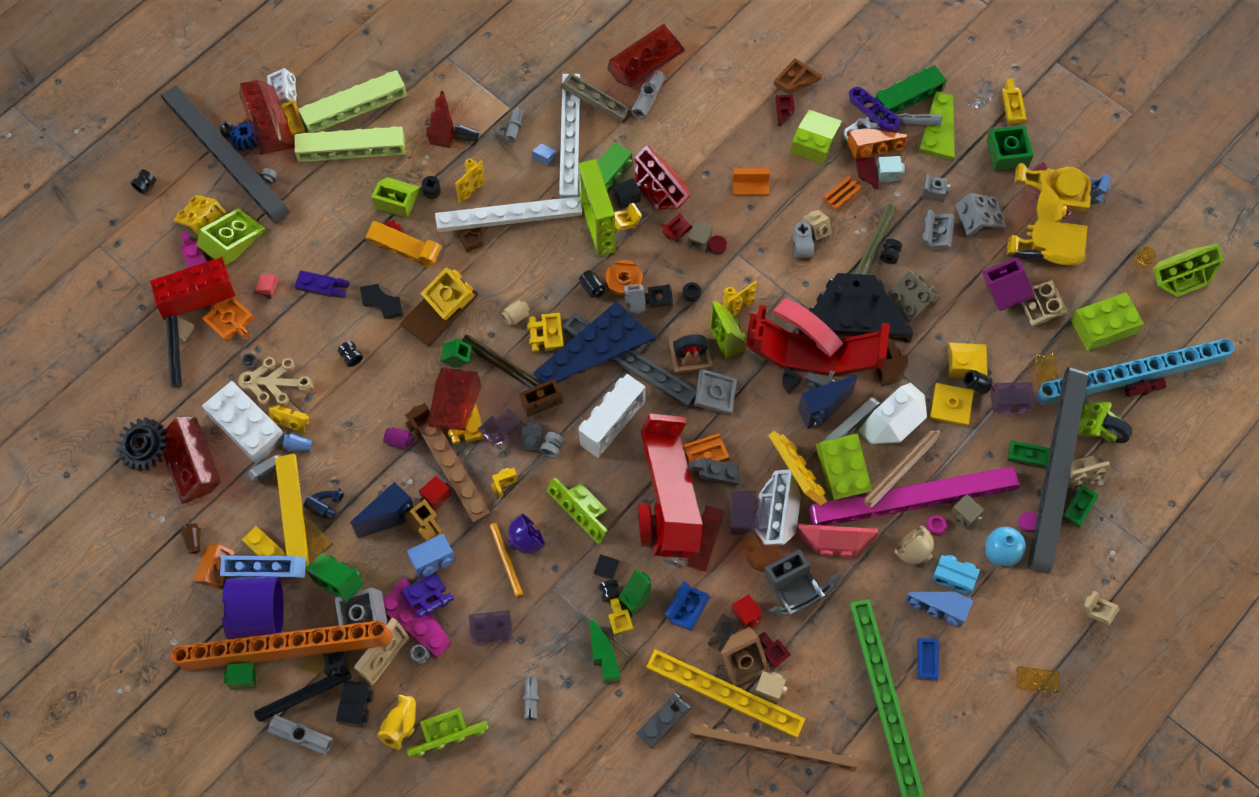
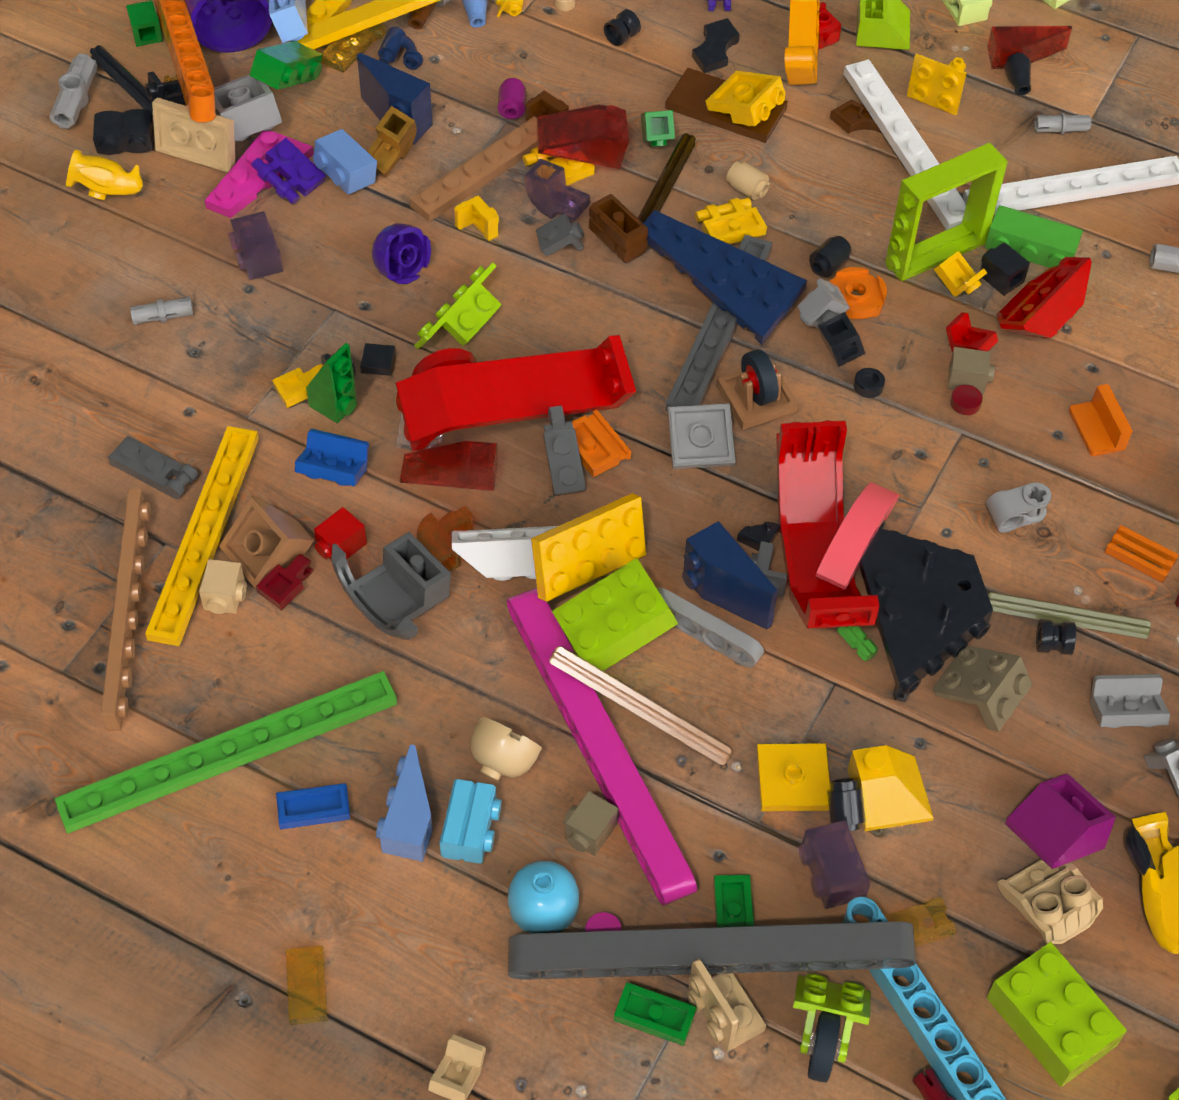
camera: 75 degrees right, 10 degrees down
(414, 654) = (204, 182): light grey plate -> none
(429, 191) = (909, 50): black wheel -> none
(435, 492) = (440, 150): red brick -> none
(445, 729) = (102, 227): lime bracket -> none
(506, 560) = (346, 255): light orange bar -> none
(543, 154) = (1029, 164): medium blue slope -> none
(552, 444) = (557, 256): light grey wheel -> none
(595, 97) = (1154, 200): dark tan tile -> none
(604, 654) = (241, 374): green slope -> none
(612, 415) = (610, 305): white brick -> none
(724, 629) = (307, 512): clear smoke plate -> none
(726, 331) = (807, 399): lime slope -> none
(736, 301) = (871, 431): yellow hinge -> none
(743, 512) = (502, 501): clear purple brick -> none
(819, 224) = (1061, 525): tan bracket -> none
(836, 540) = (489, 639): coral wedge -> none
(894, 366) = (829, 674): reddish brown brick -> none
(895, 417) = (745, 692): white wedge -> none
(936, 525) = (558, 785): dark pink tile -> none

